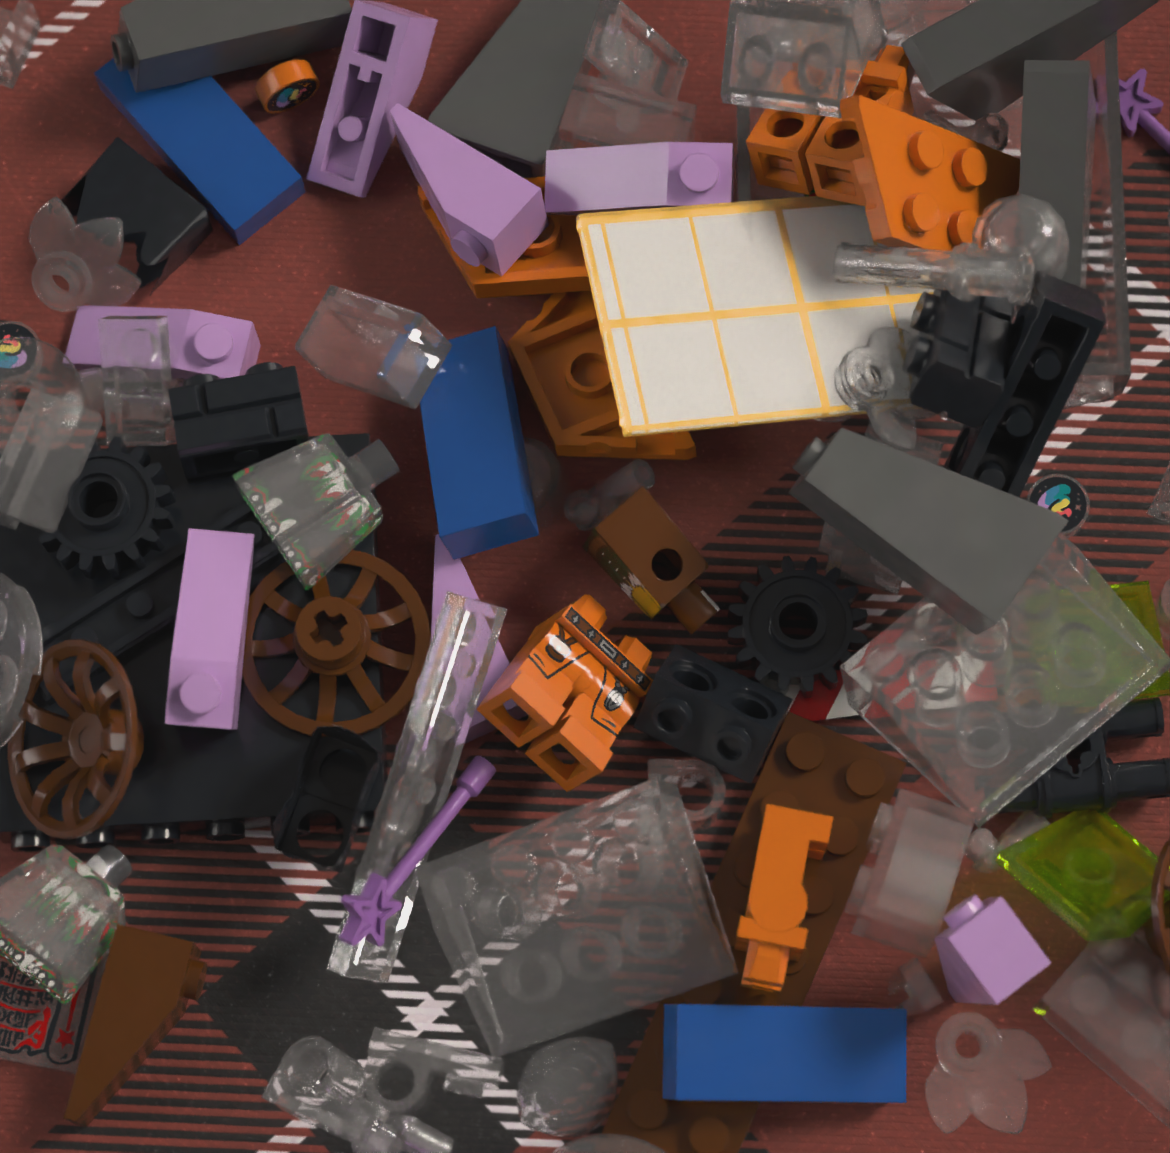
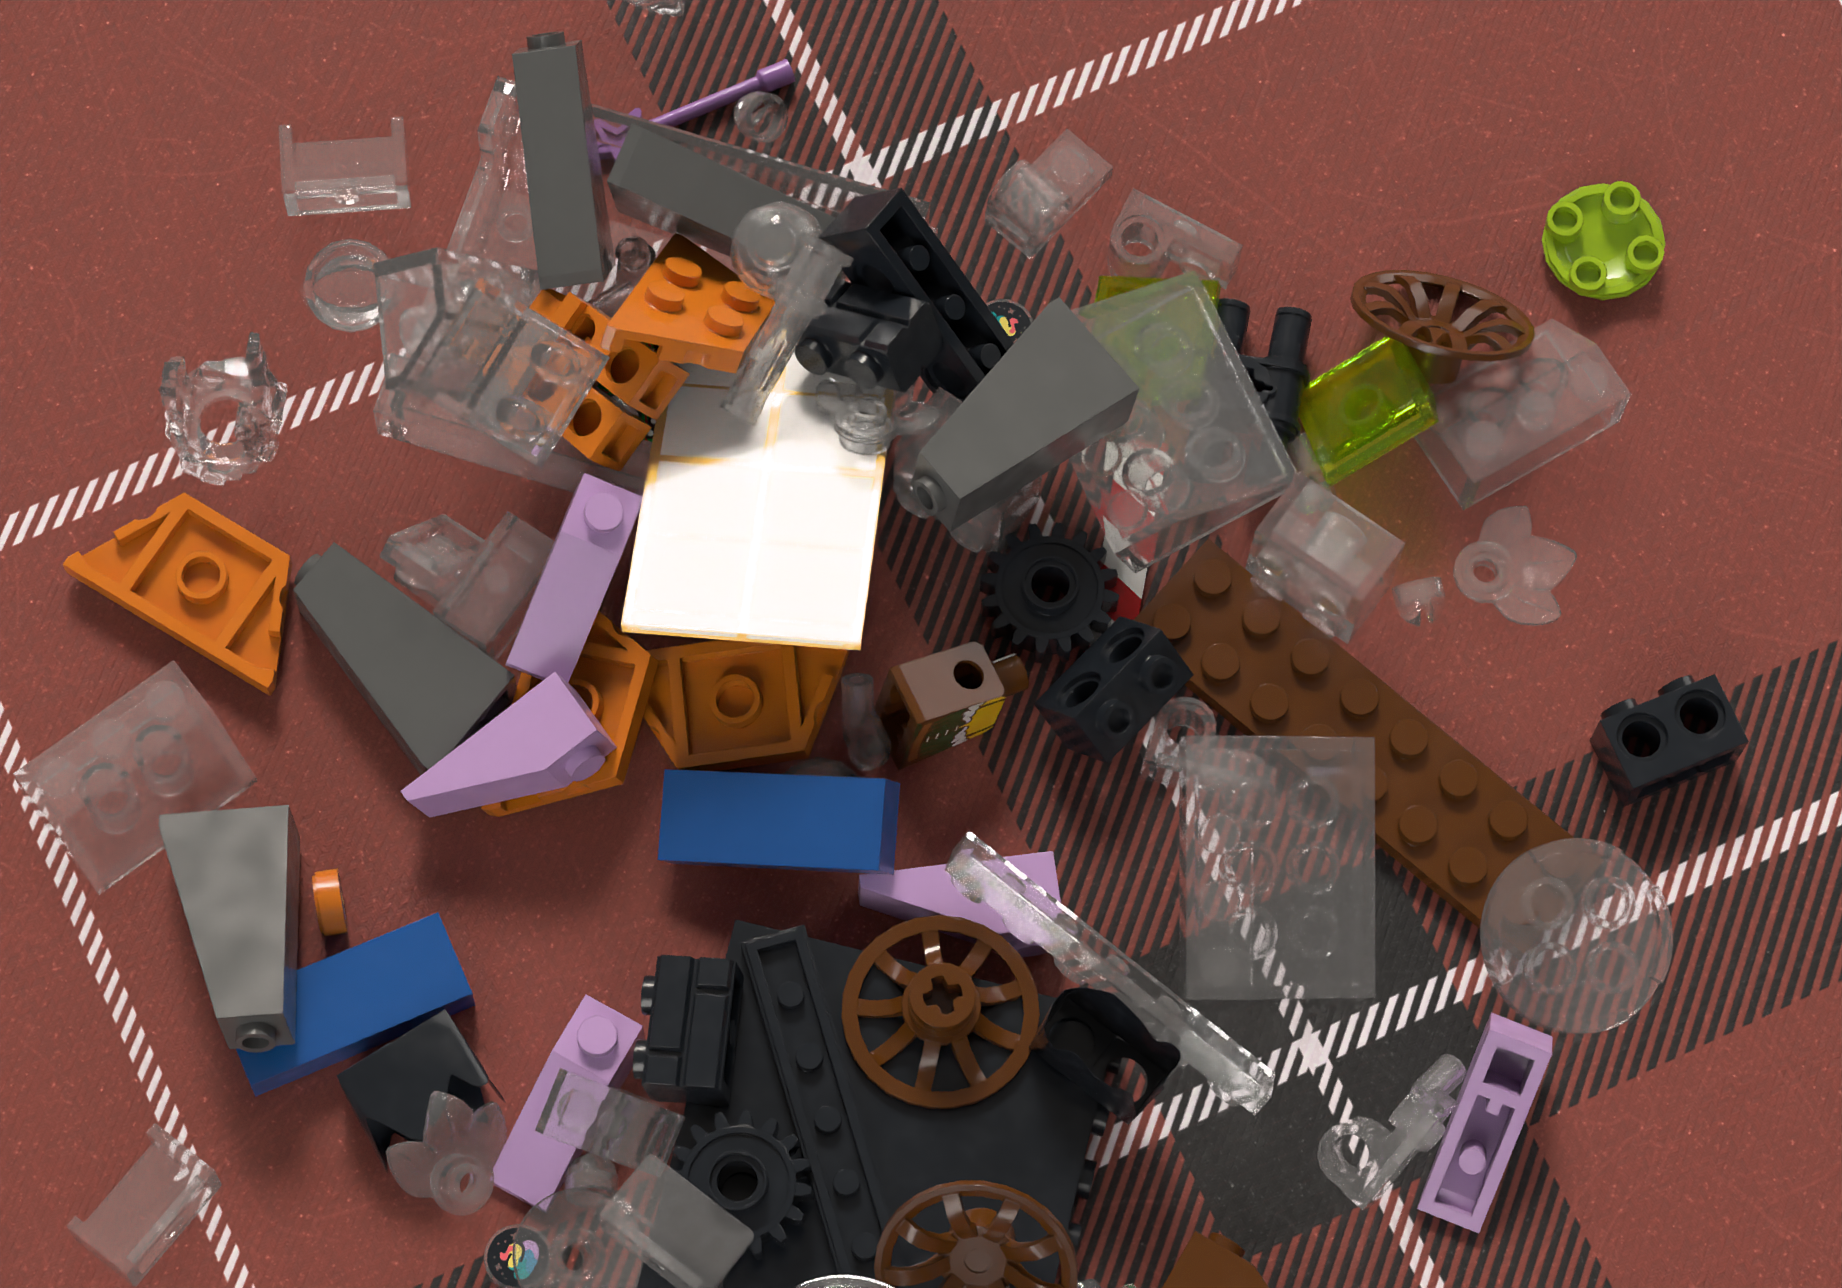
camera: 80 degrees left, 5 degrees down
(210, 630) = (905, 1113): lavender slope -> none
(317, 501) = (809, 974): clear torso -> none
(373, 346) = (645, 891): clear panel -> none
(375, 70) = (372, 825): lavender slope -> none
(376, 903) = (1213, 1039): medium lavender piece -> none
(464, 1070) = (1369, 1057): clear plate -> none
(568, 1087) = (1420, 935): clear piece -> none
(573, 690) = (1058, 802): orange hips -> none
(776, 894) = (1317, 674): orange hips -> none
(784, 1053) = (1455, 725): blue piece -> none
(986, 951) = (1436, 501): lavender slope -> none

